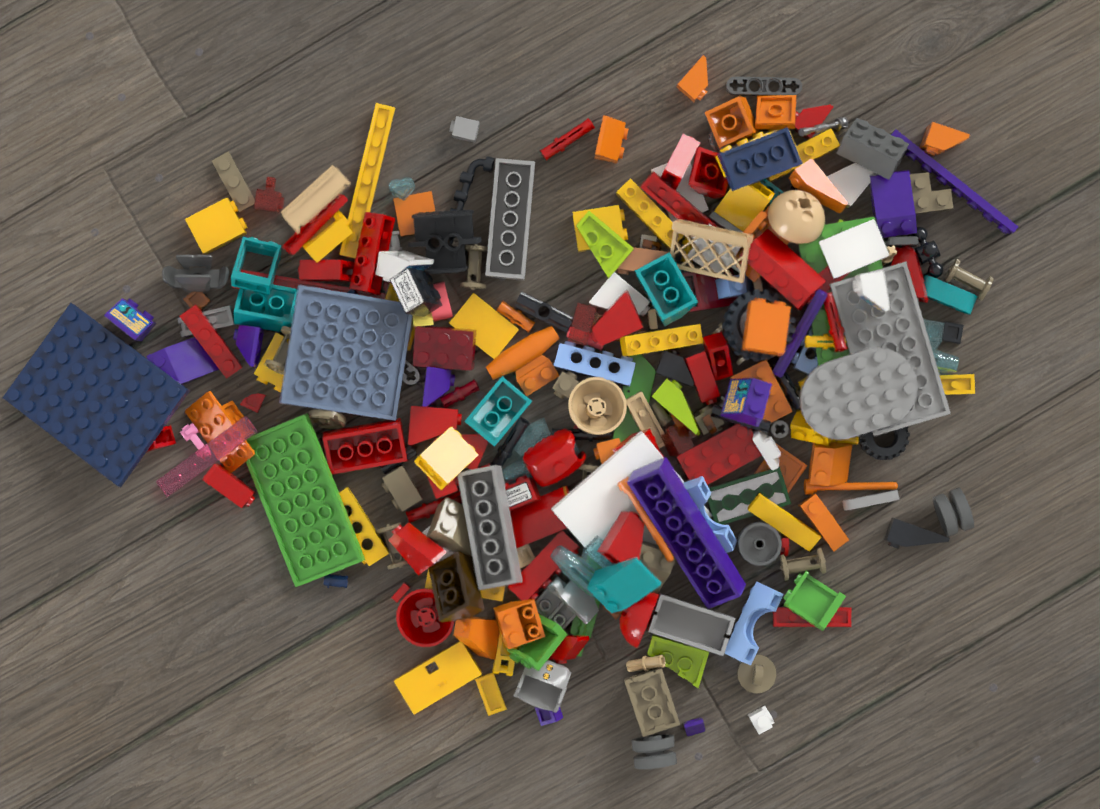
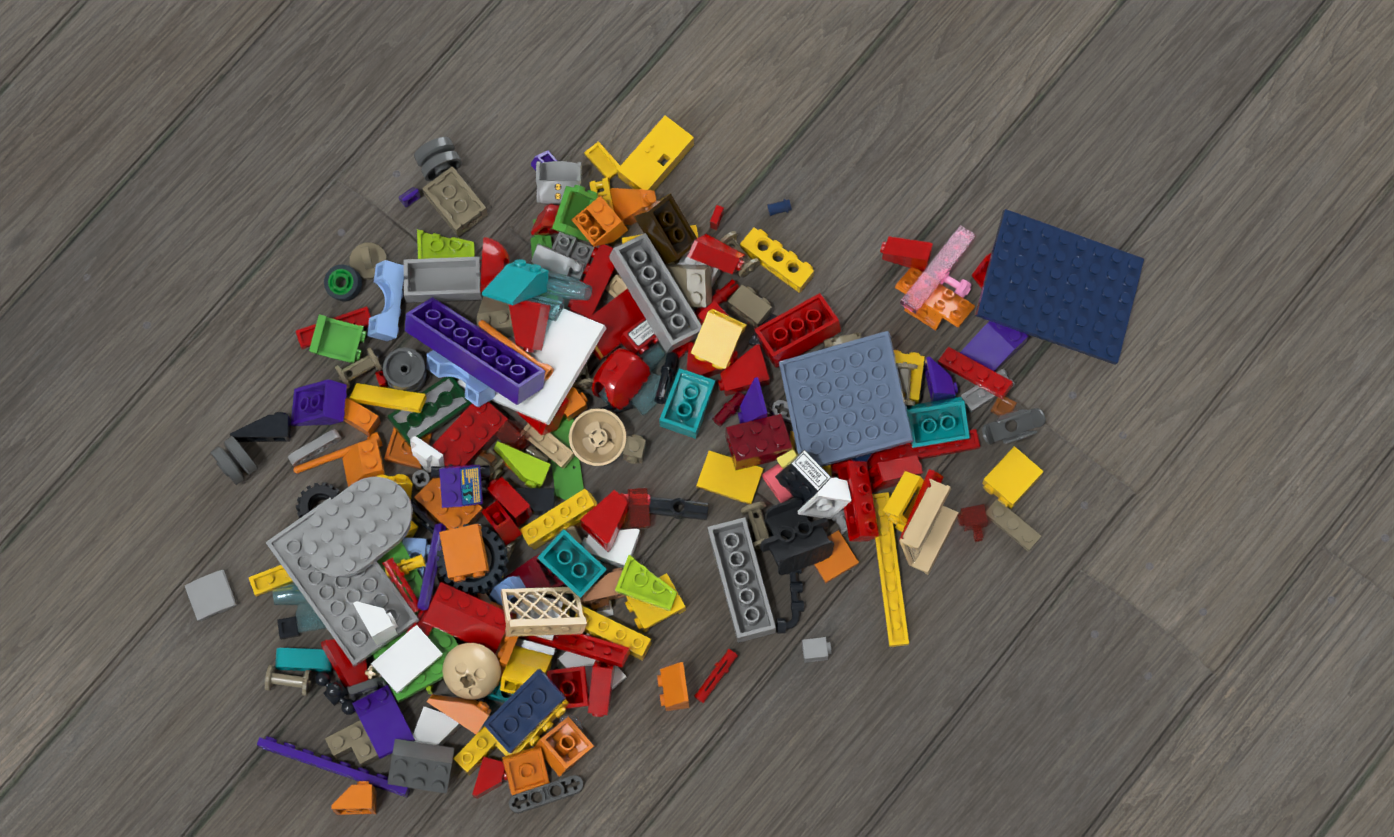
camera: 165 degrees right, 15 degrees down
(131, 319) = (1056, 364): slope -> none
(253, 402) = (915, 336): red tile -> none
(254, 282) = (955, 434): teal window -> none
(302, 501) = (835, 261): bright green plate -> none
(402, 188) = (854, 574): clear light blue tile -> none
(419, 626) = (692, 192): red piece -> none
(515, 316) = (703, 496): orange pin -> none
(527, 361) = (677, 459): orange plate -> none
(622, 377) = (621, 470): light blue brick -> none
(646, 663) = (472, 232): tan axle -> none
(695, 81) = (613, 774): orange slope -> none
(761, 719) = (350, 221): white brick -> none
(799, 654) = (334, 277): none -> wheel
(838, 124) = (461, 783): flat silver piece -> none
(853, 539) = (319, 404): none -> dark purple slope
(1016, 389) = (210, 595): none -> light grey slope

